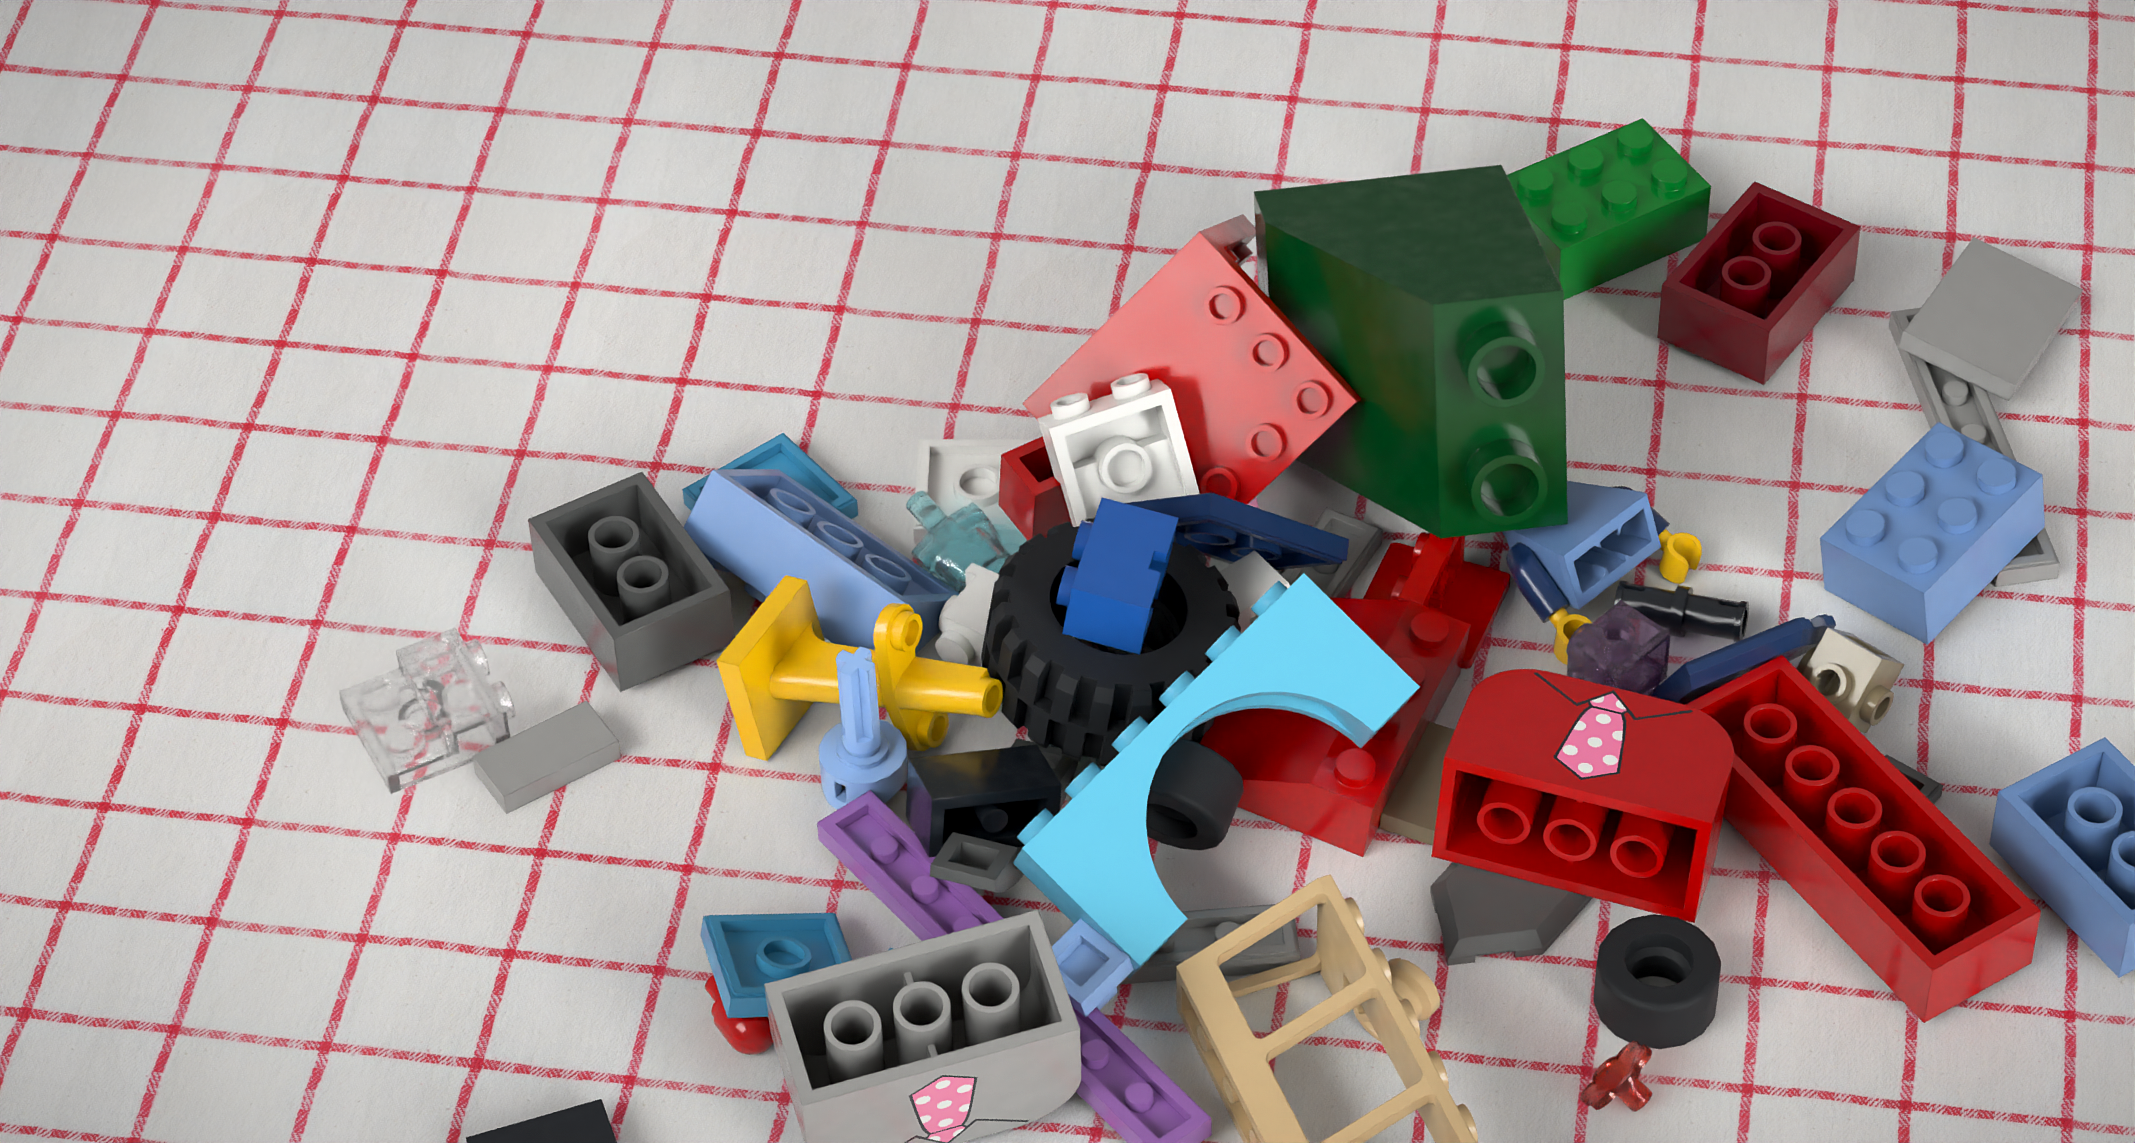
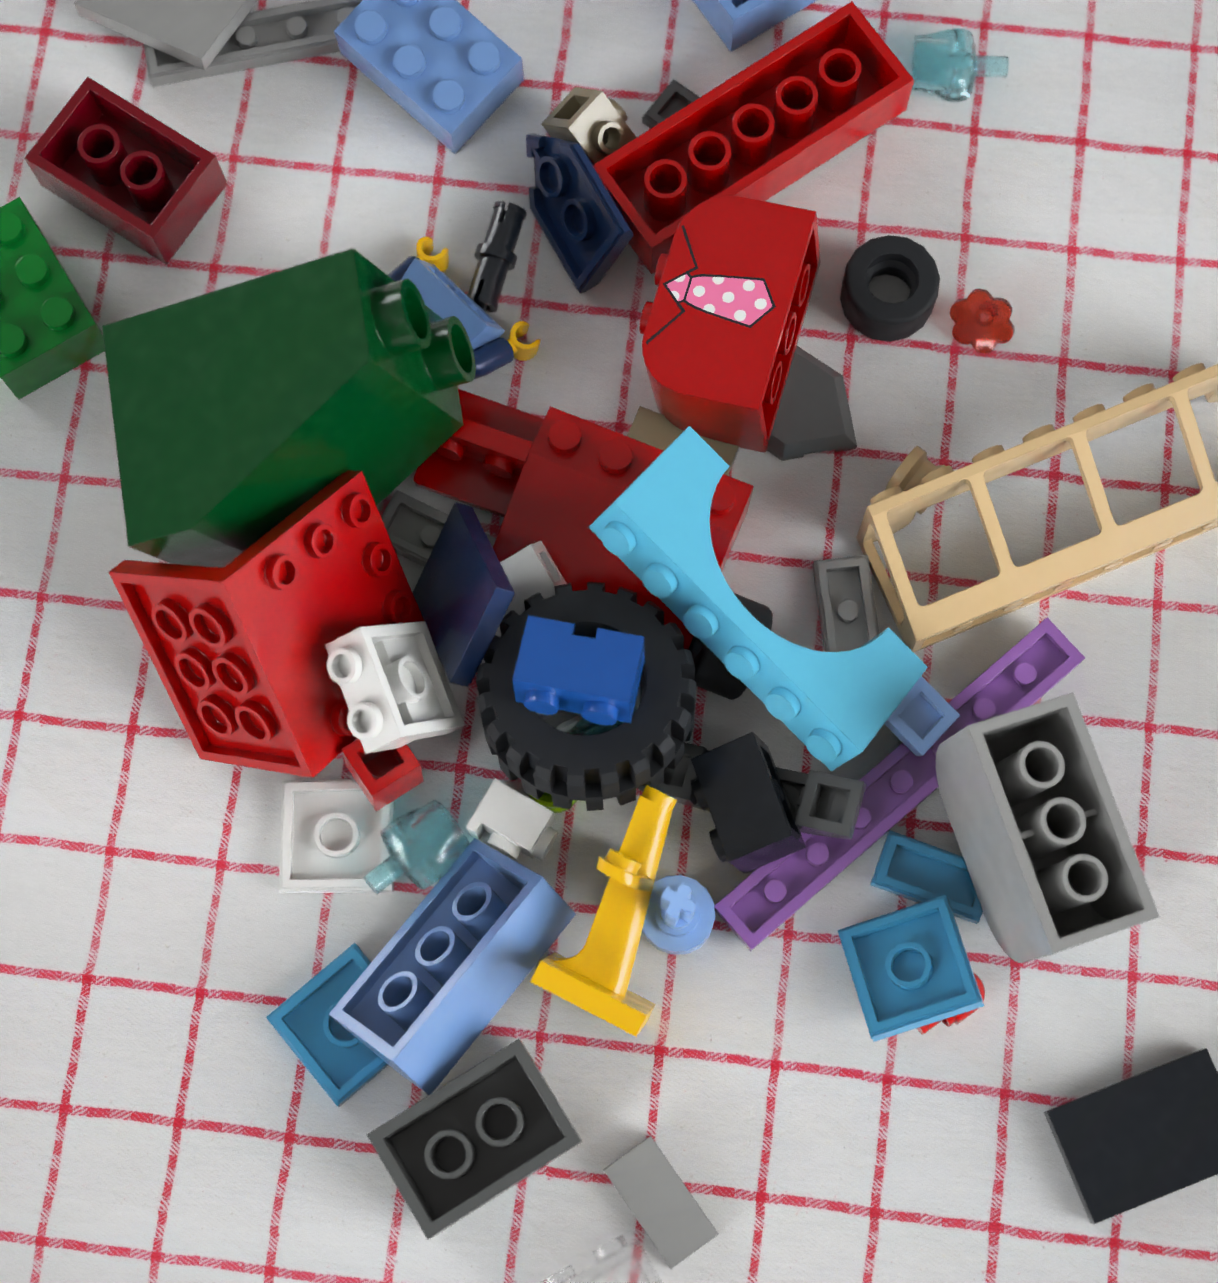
camera: 90 degrees left, 30 degrees up
(1620, 651) = (565, 302): clear purple brick -> none
(1991, 1059) = (948, 64): none -> clear light blue piece

